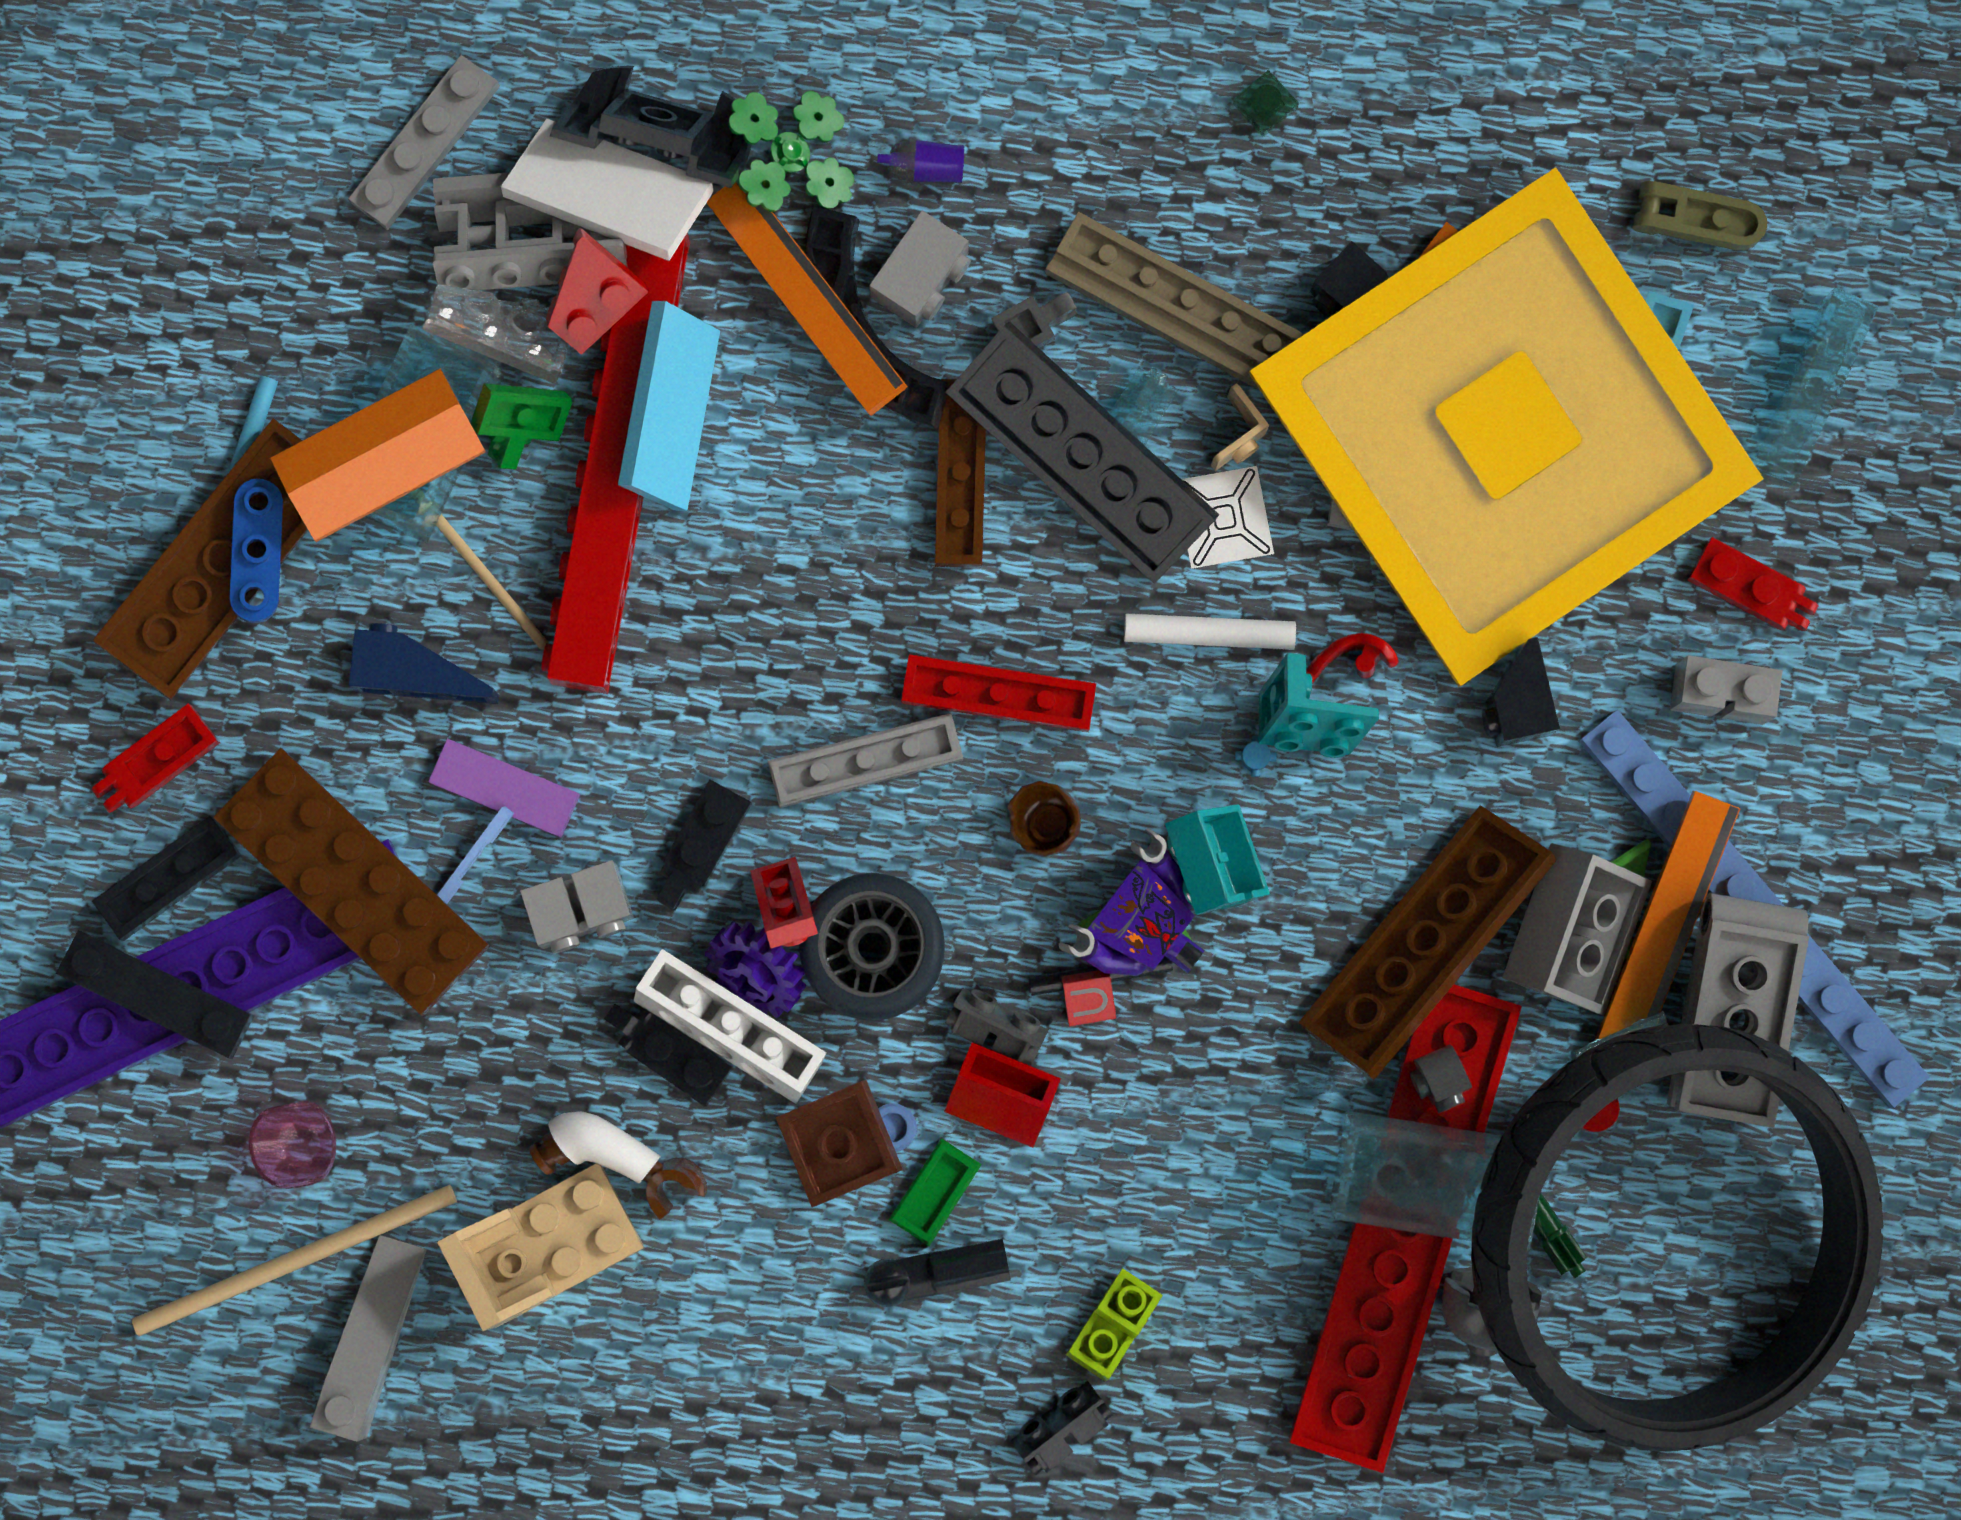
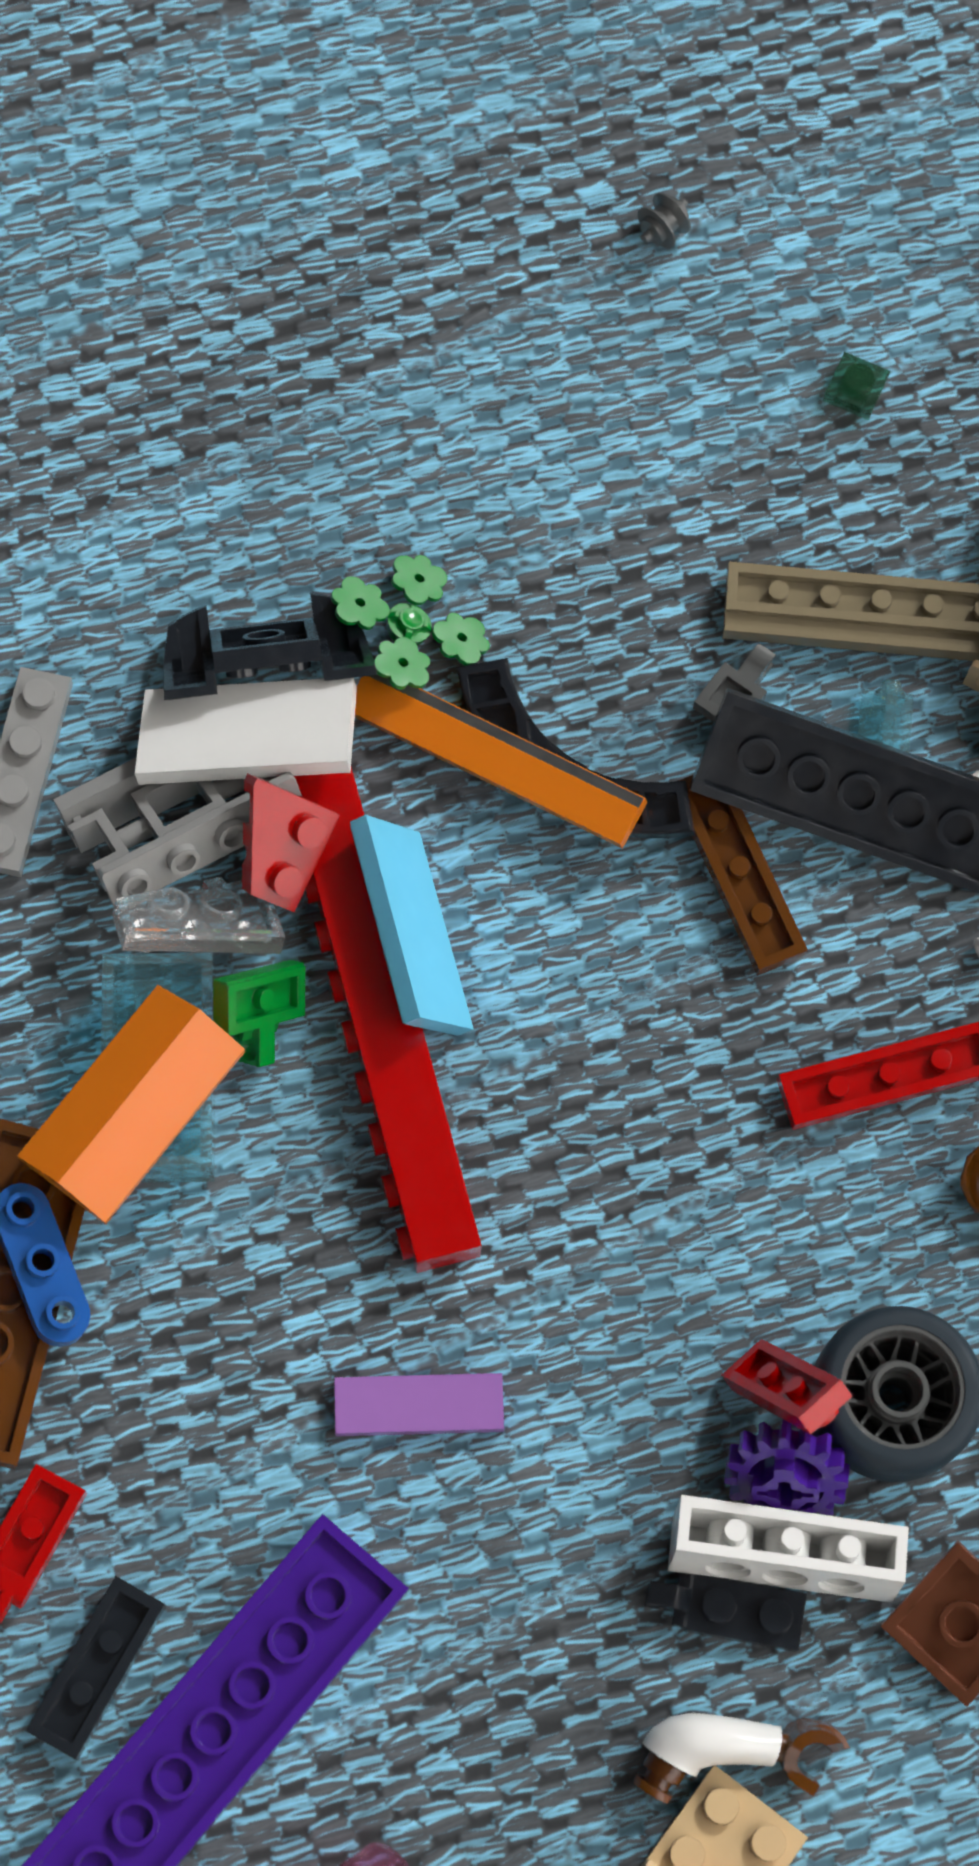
camera: 25 degrees left, 10 degrees down
(155, 994) = (145, 1802): black plate -> none
(351, 881) = (306, 1577): reddish brown plate -> none
(400, 666) = (257, 1320): dark blue slope -> none
(487, 837) = (413, 1530): light blue piece -> none
(491, 582) = (302, 1194): tan axle -> none
(577, 907) = (560, 1494): light grey piece -> none
(701, 842) = (656, 1368): black hinge -> none
(865, 760) = (783, 1206): light grey tile -> none
(920, 270) = (598, 683): light grey brick -> none
(925, 161) = (550, 577): dark purple piece -> none

